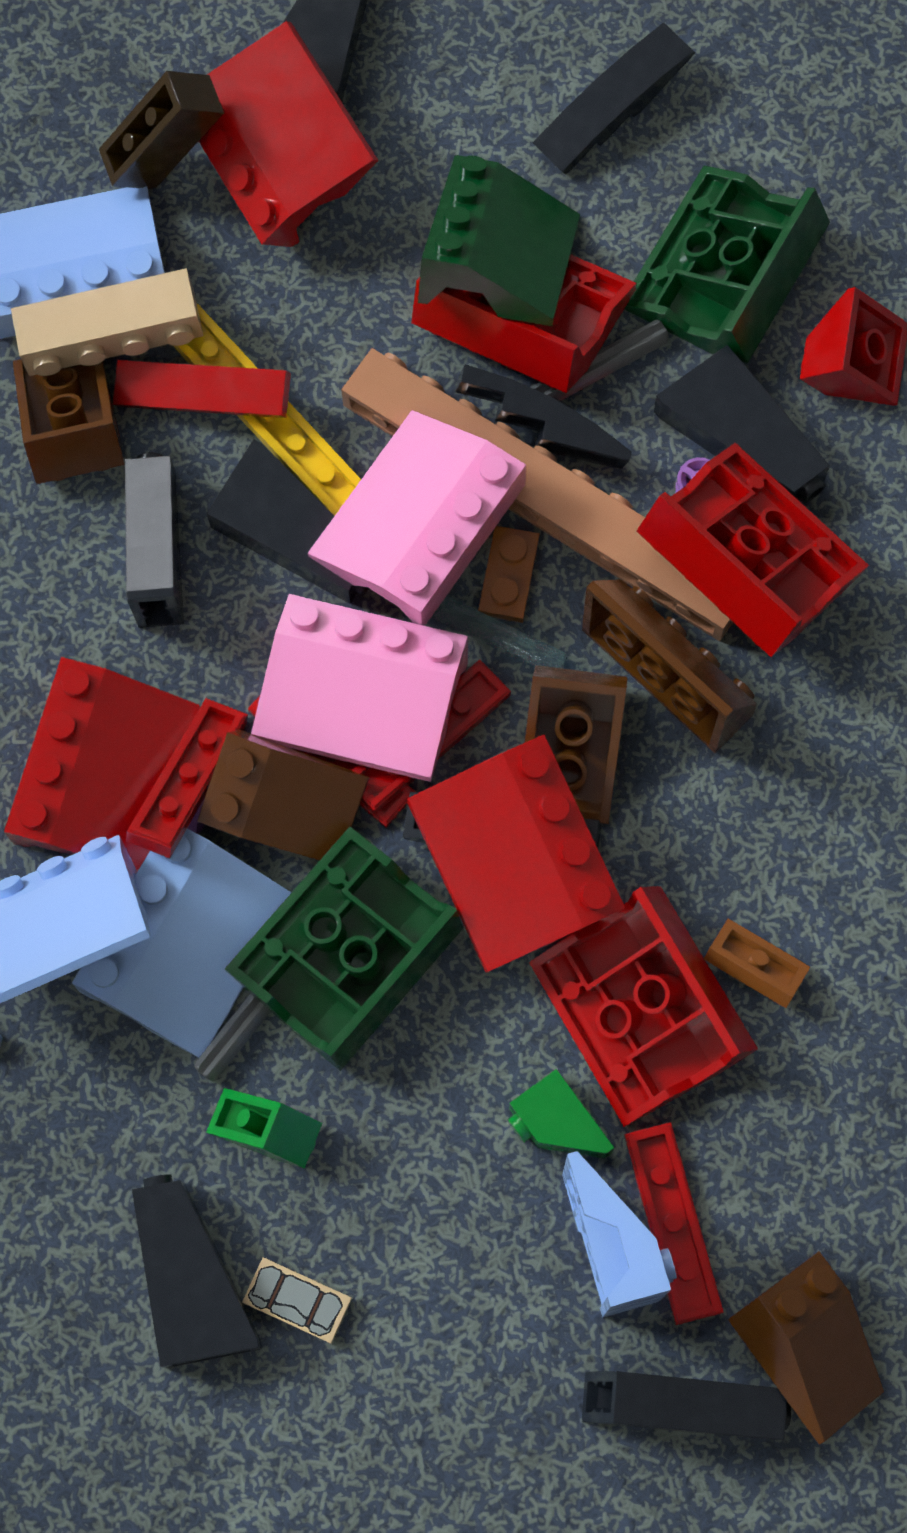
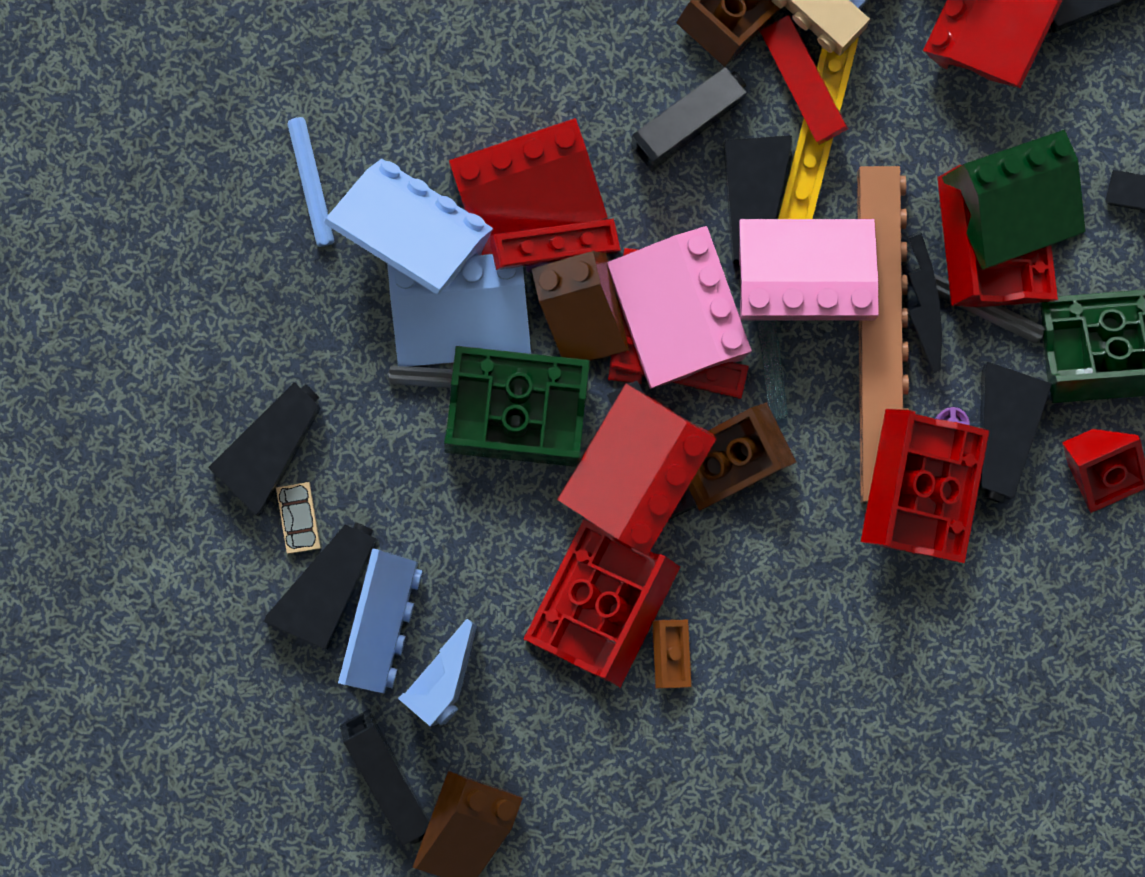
camera: 55 degrees right, 10 degrees up
(264, 1127) = (382, 431): green slope -> none
(408, 1332) = (323, 591): none -> black slope
(491, 1281) = (379, 622): none -> light blue piece
(509, 574) = (815, 347): dark orange plate -> none
(557, 1119) = (499, 597): green slope -> none
(666, 662) = (821, 481): reddish brown slope -> none
(674, 1221) = (486, 704): red tile -> none

